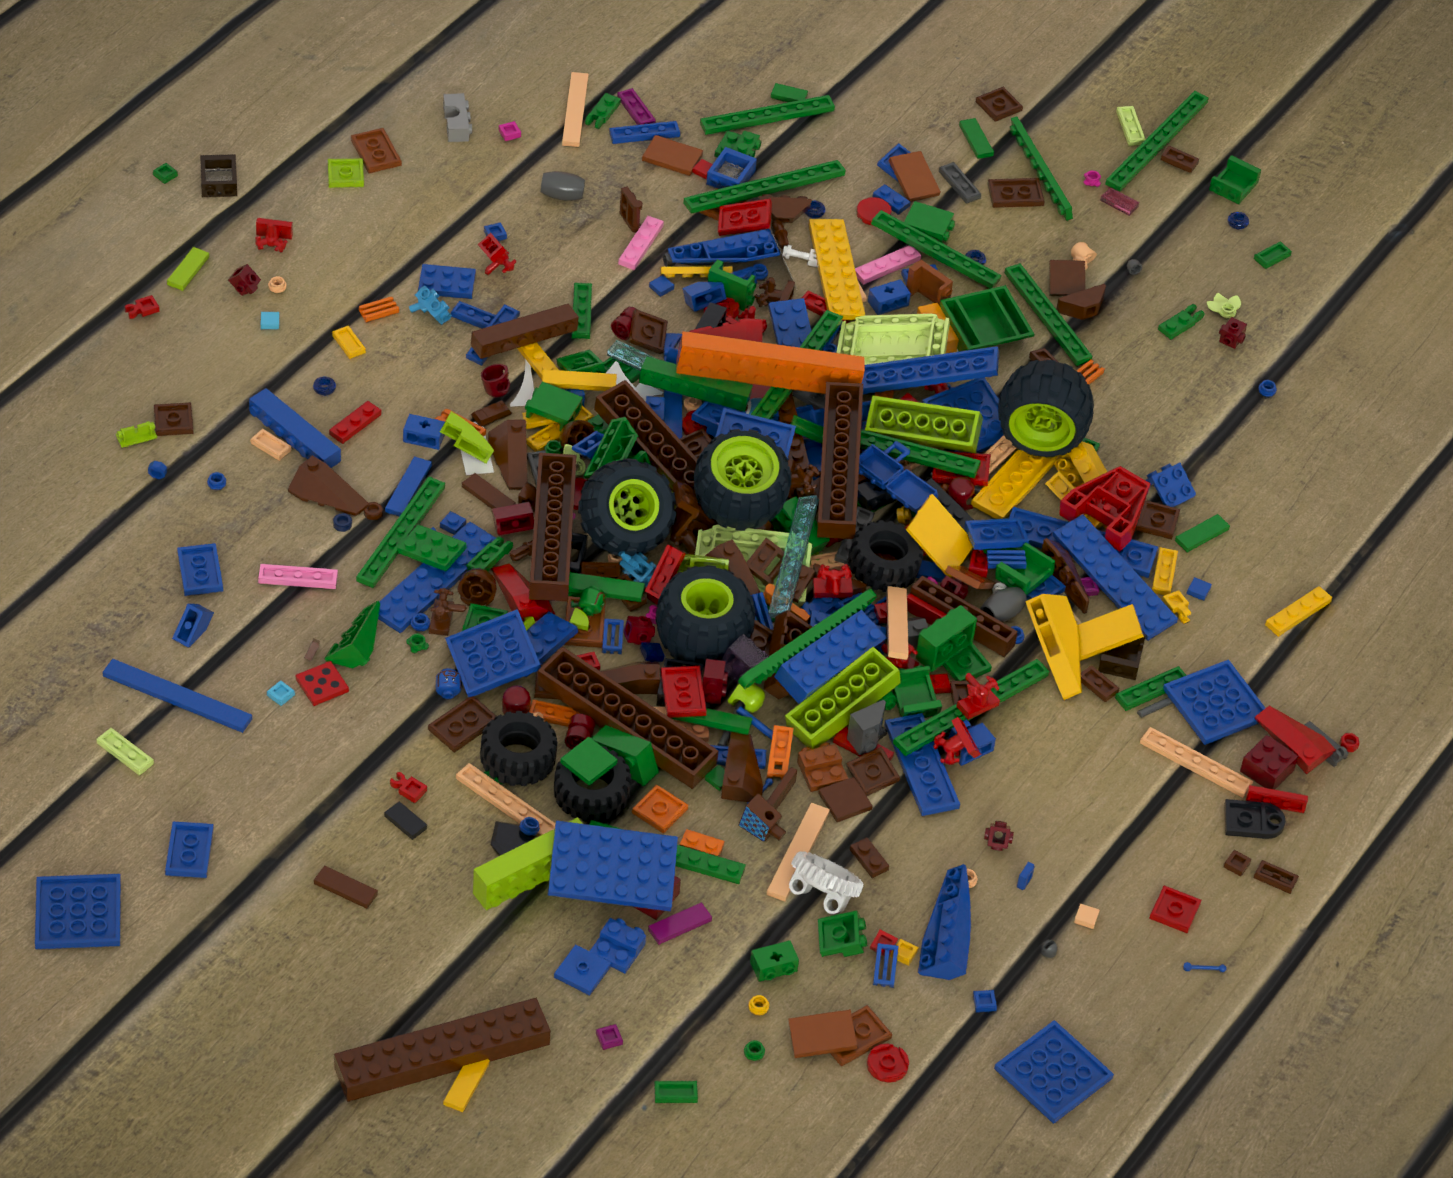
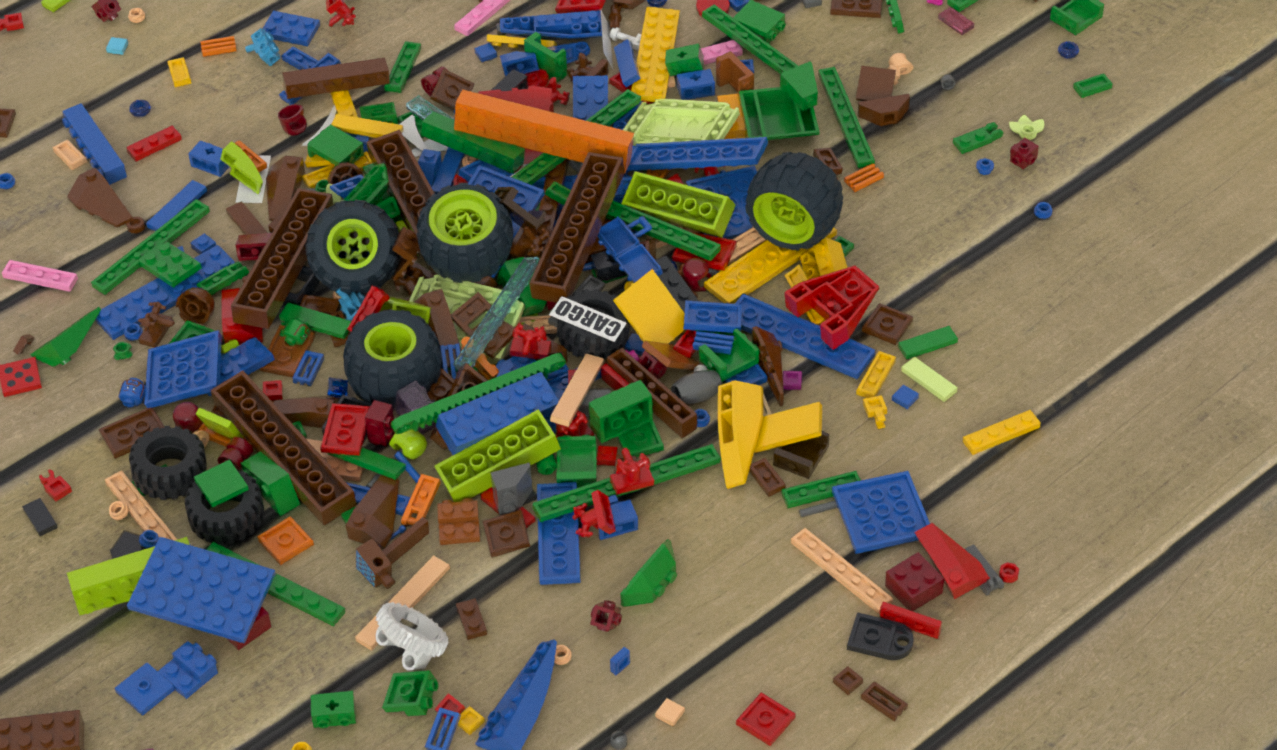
camera: 20 degrees right, 0 degrees up
(342, 522) = (103, 231): dark blue tile -> none
(484, 797) = (118, 510): none -> light nougat plate
(491, 413) = (281, 149): reddish brown tile -> none
(557, 703) = (218, 424): none -> lime tile
(580, 619) = (279, 348): lime tile -> none
(638, 630) = (331, 365): dark red brick -> none
(680, 923) = (258, 656): magenta tile -> none
(702, 842) = (312, 580): orange plate -> none
(795, 456) = (519, 215): none -> dark brown panel
(813, 281) = (627, 63): none -> blue tile
(845, 799) = (470, 557): reddish brown tile -> none
(872, 272) = (684, 59): none -> green brick
(884, 551) = (588, 319): none -> sticker
(977, 254) = (800, 58): clear blue piece -> none
(1003, 288) = (800, 85): none -> green slope
(1028, 793) = (651, 578): none -> green wedge
(1114, 575) = (820, 374): blue plate -> none
(1172, 484) = (910, 291): blue bracket -> none
(1197, 350) = (985, 166): none -> blue plate
(1215, 568) = (929, 379): none -> yellowish green tile

